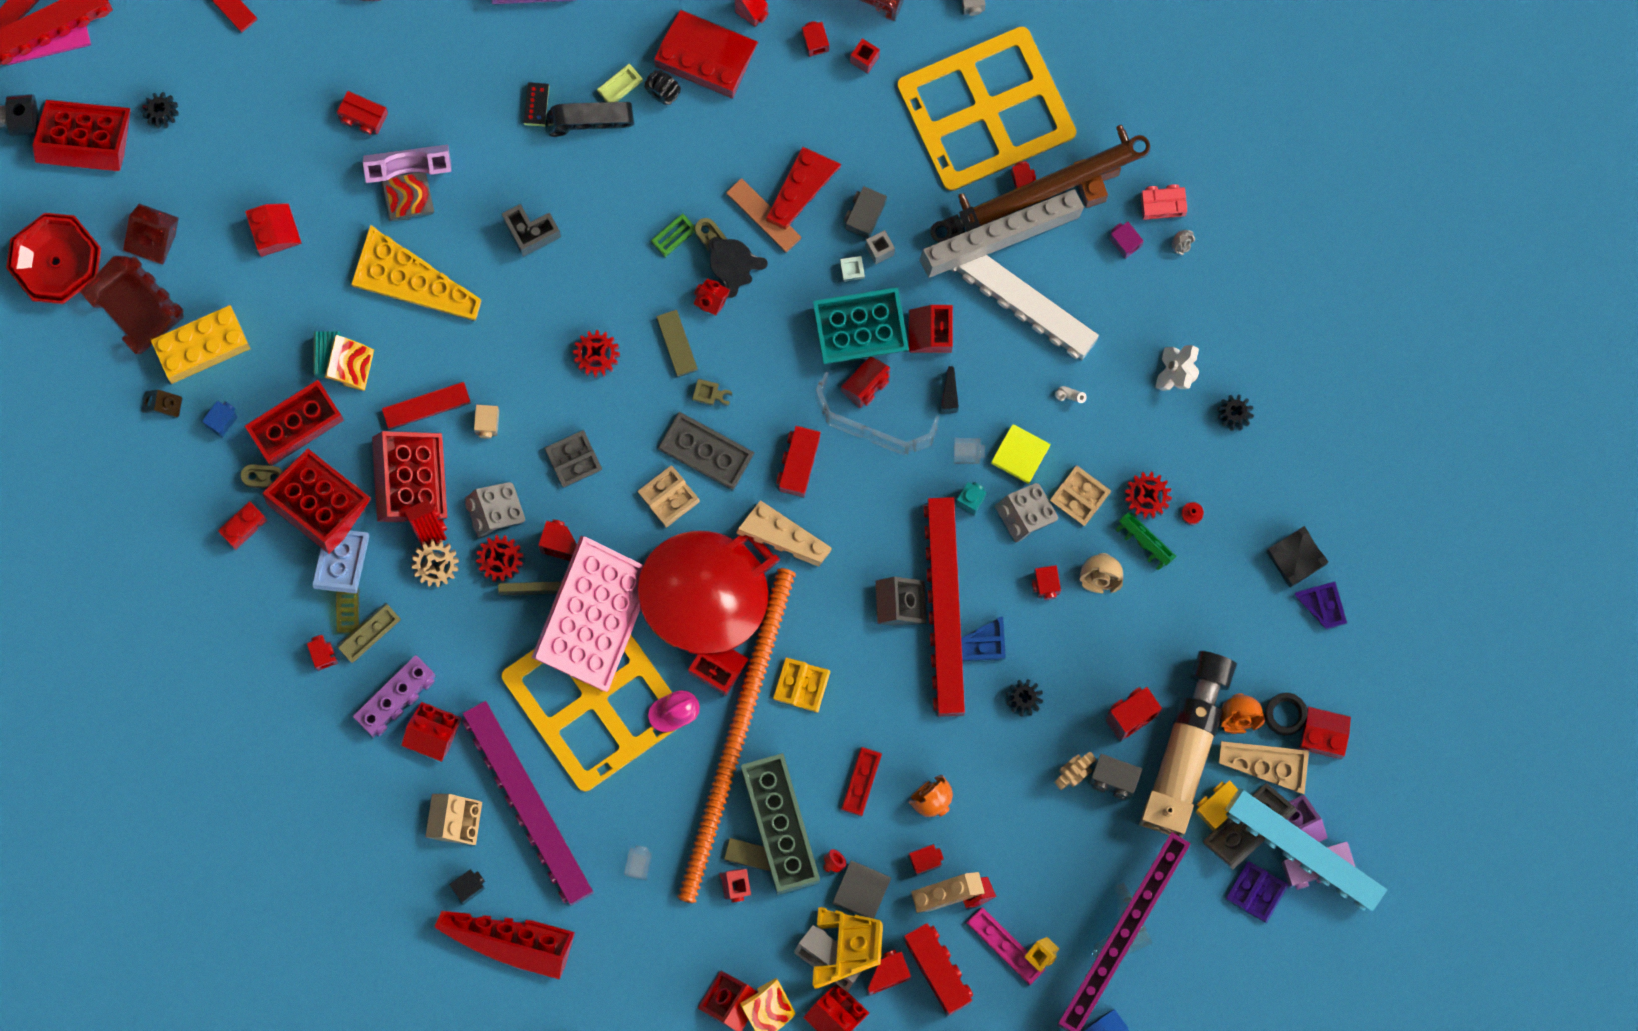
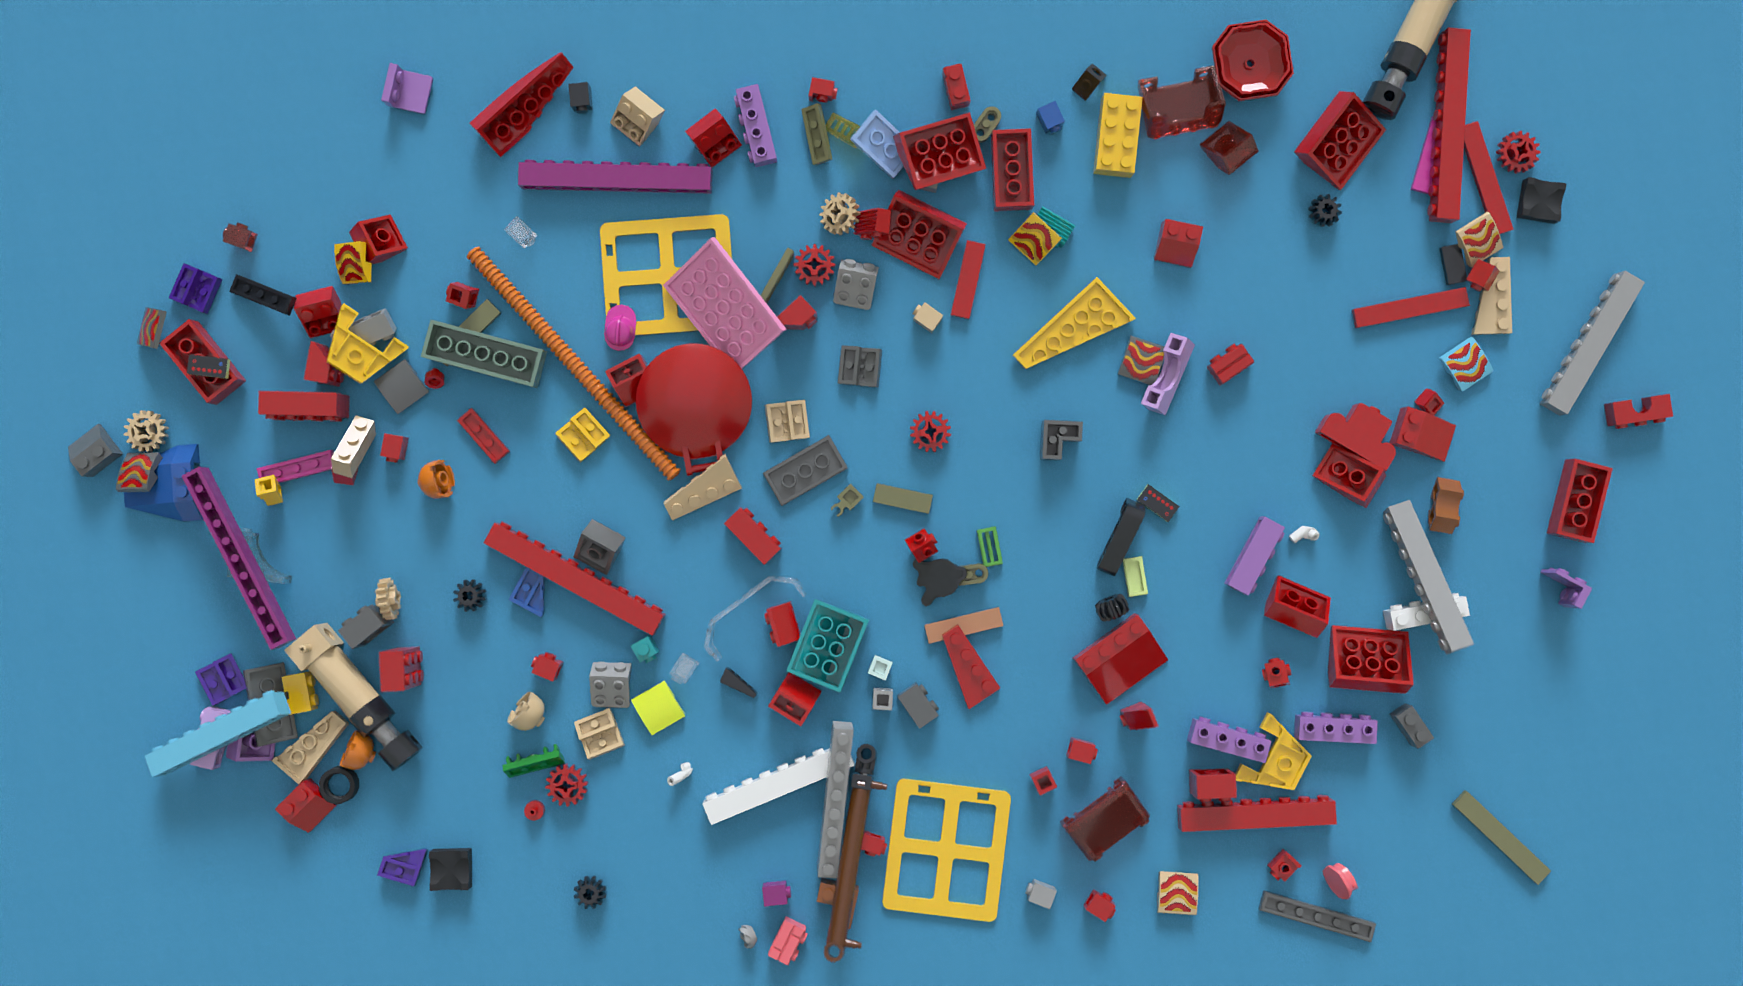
camera: 125 degrees right, 10 degrees up
(1179, 368) = (648, 870): white plant -> none

